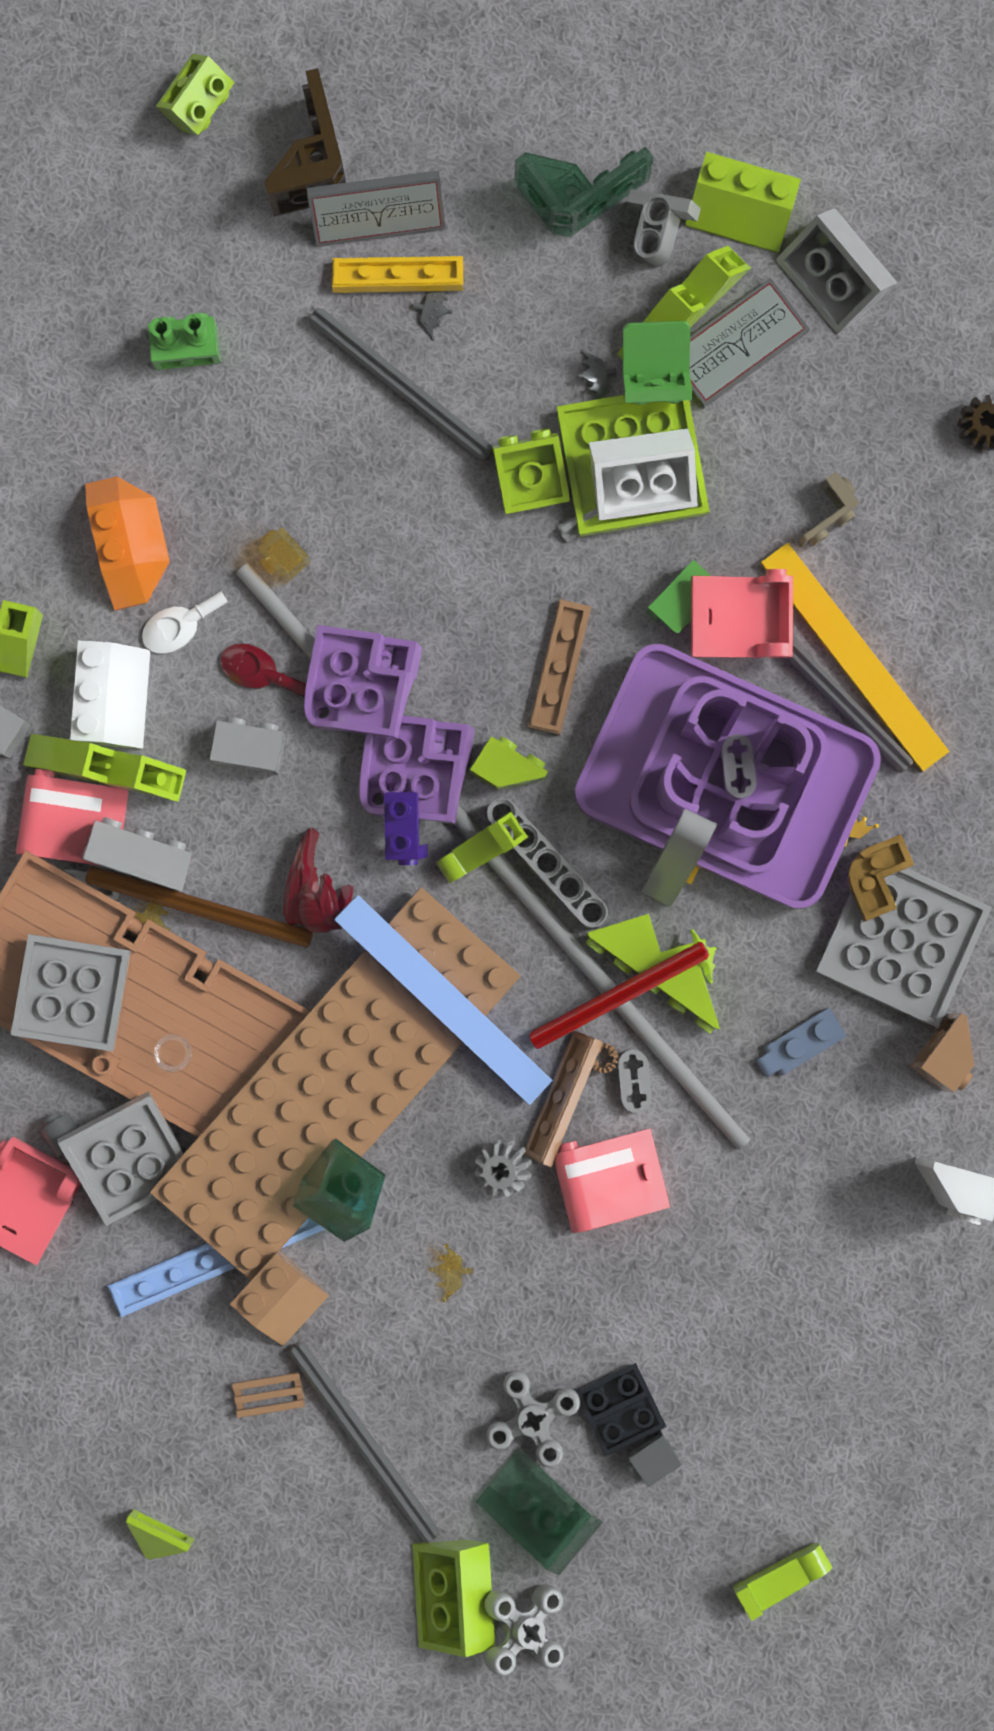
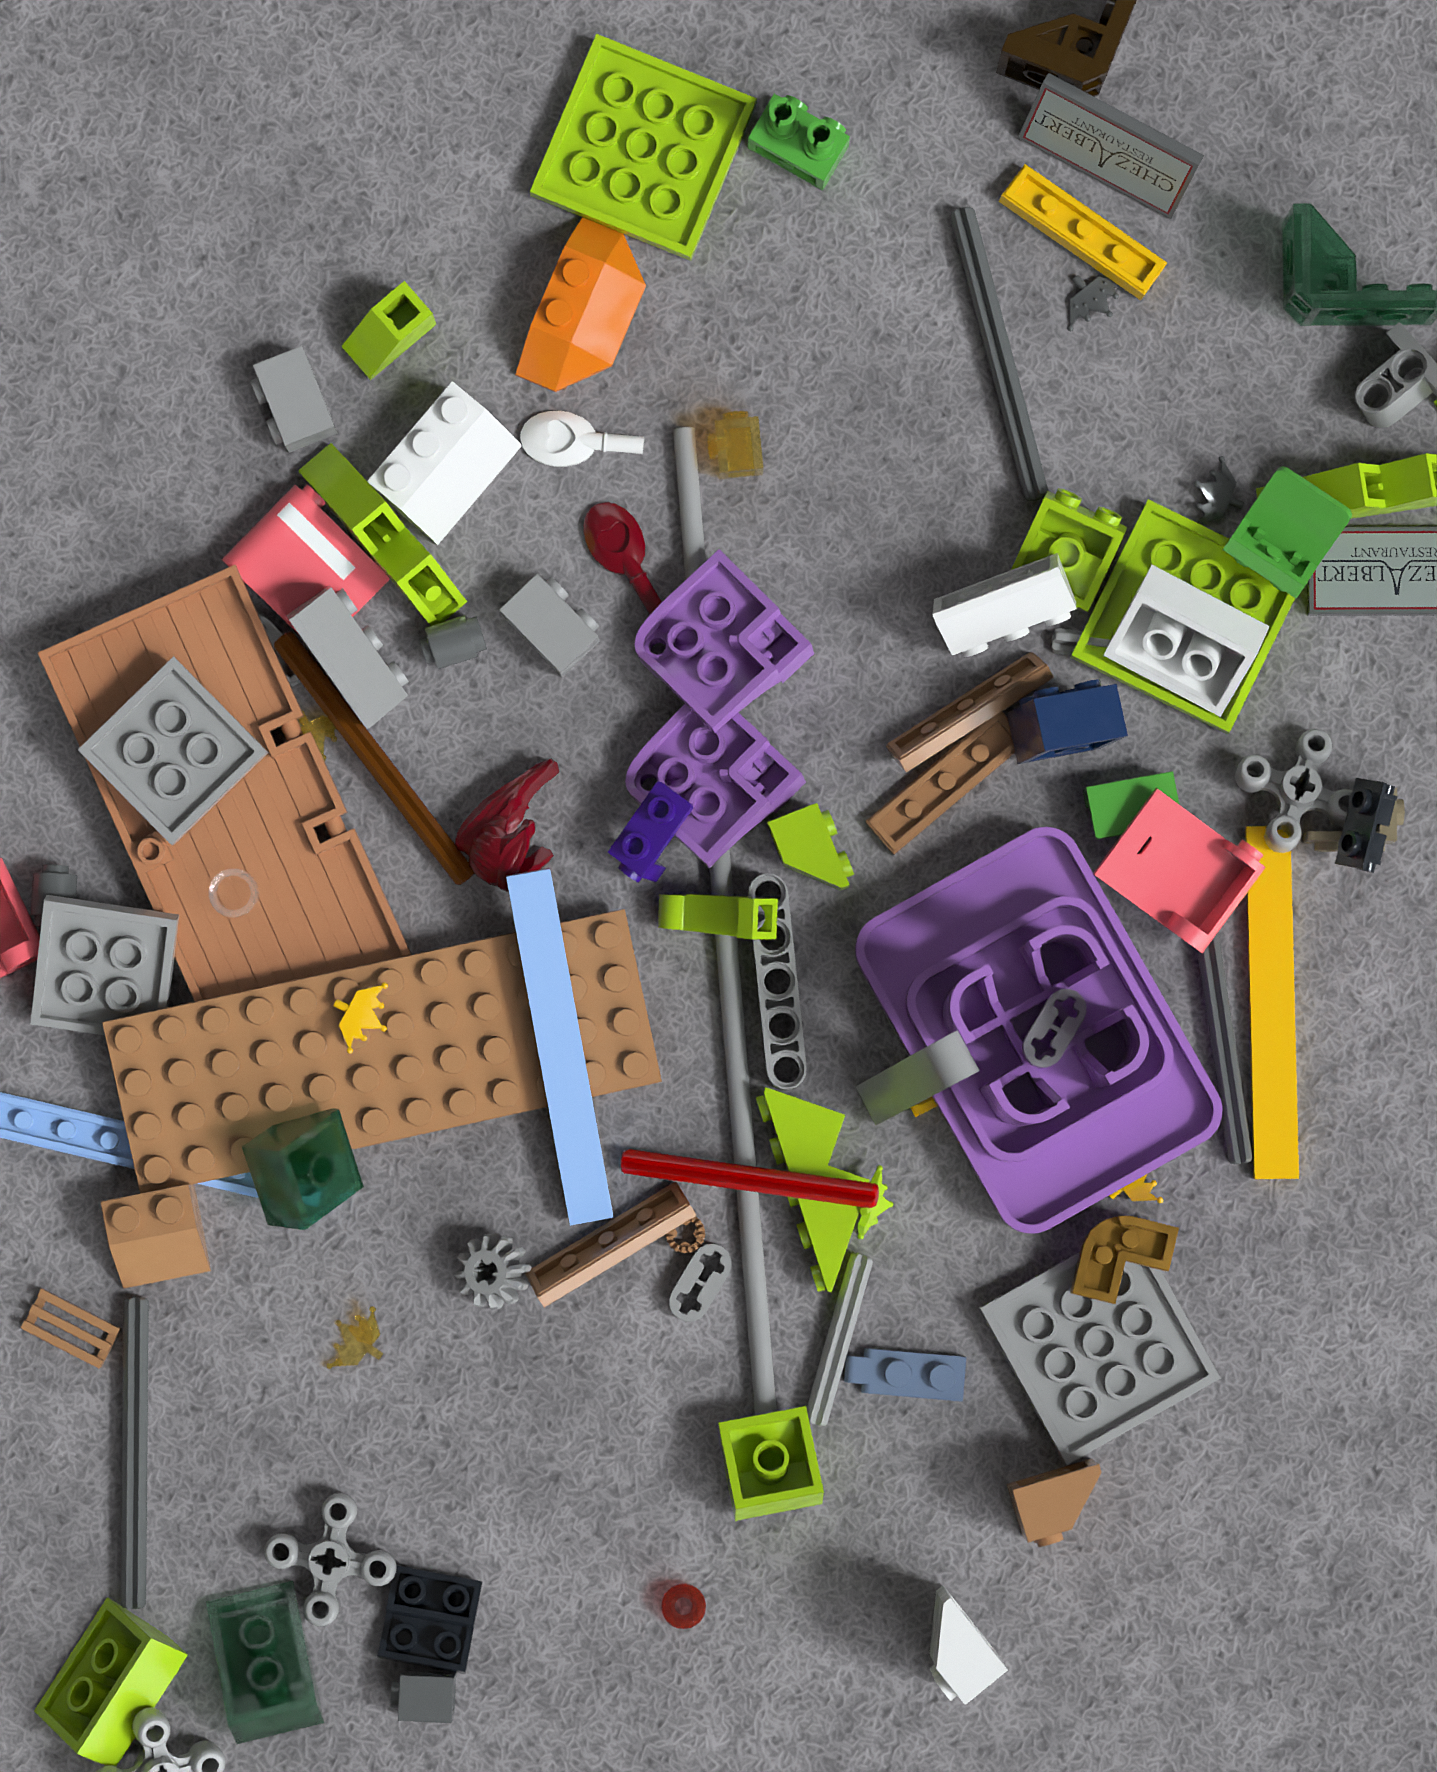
camera: 35 degrees right, 0 degrees up
(91, 414) = (643, 147): none -> lime plate
(195, 800) = (453, 641): none -> dark grey brick
(306, 1070) = (360, 1014): none -> yellow piece
(518, 532) = (1004, 606): none -> white slope
(542, 613) = (969, 711): none -> medium nougat tile
(606, 1183) = (591, 1367): coral door -> none
(607, 575) = (1066, 721): none -> dark blue brick
(743, 1054) = (838, 1338): none -> light grey axle
(759, 1160) = (770, 1463): none -> lime slope
(769, 1297) = (688, 1620): none -> clear red plate
(784, 510) = (1282, 787): none -> light grey gear
(828, 495) = (1368, 805): none -> black hinge

